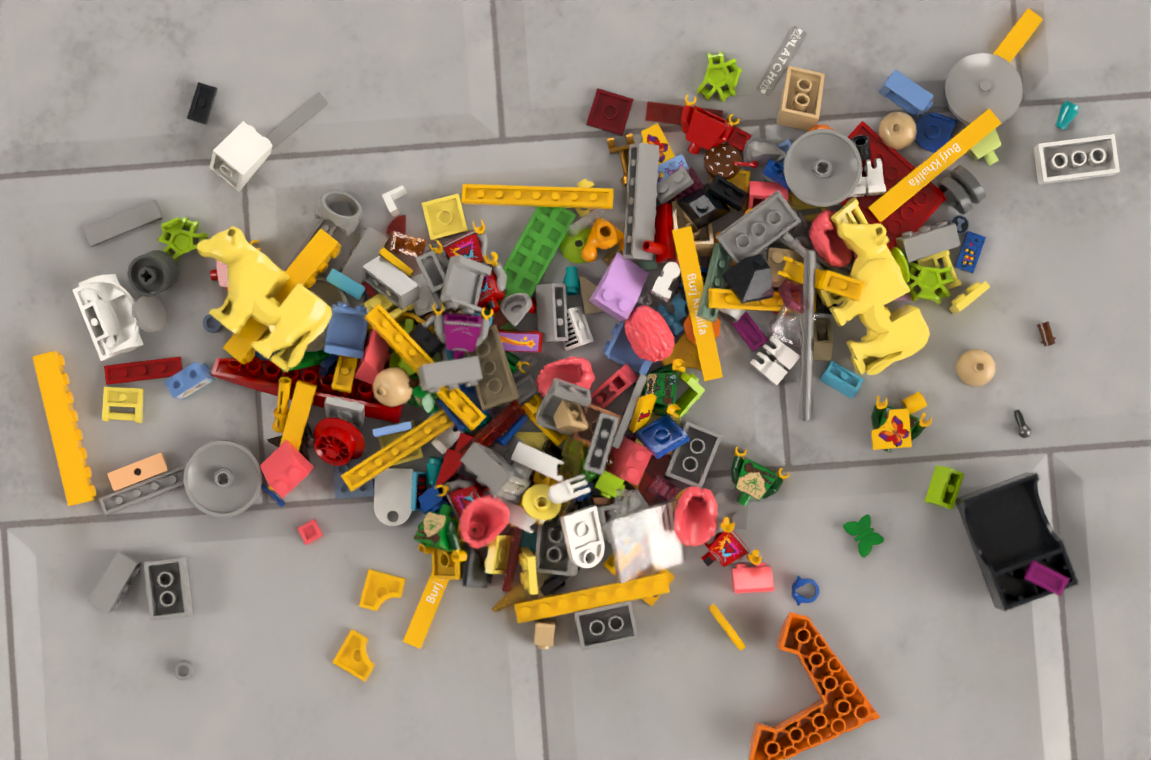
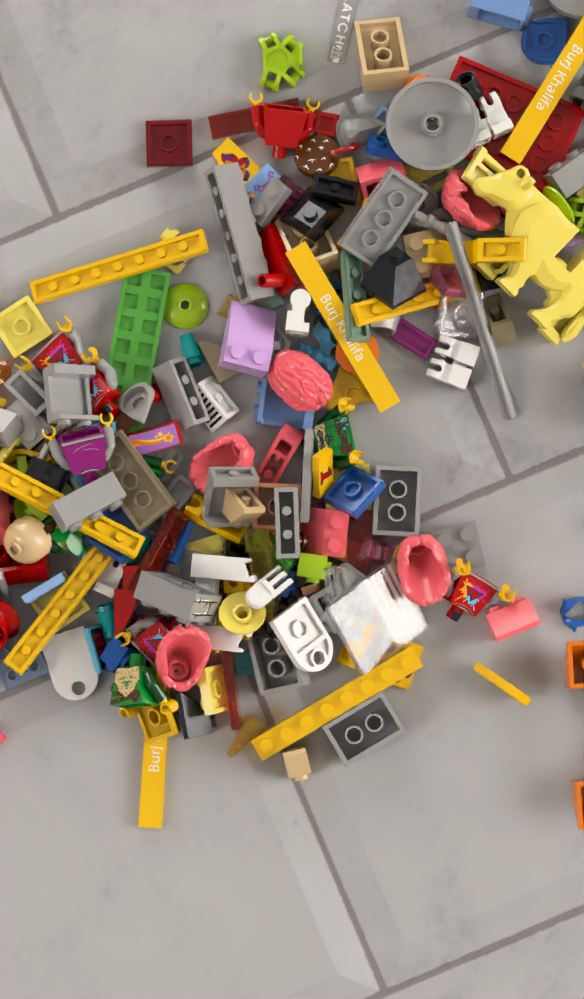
camera: 15 degrees left, 0 degrees up
(354, 657) = (88, 863): yellow tile -> none
(380, 587) = (91, 774): yellow tile -> none
(528, 575) = (256, 702): light yellow plate -> none
(555, 583) = (289, 700): black piece -> none
(585, 222) = (184, 278): clear tile -> none
(602, 236) = (209, 286): light orange head -> none
(622, 152) = (198, 182): pearl gold bar -> none
(691, 395) = (371, 434): lime bracket -> none
(754, 479) = (475, 504): torso -> none
(841, 379) = (536, 358): medium azure slope -> none
(897, 130) = (504, 53): tan cylinder -> none

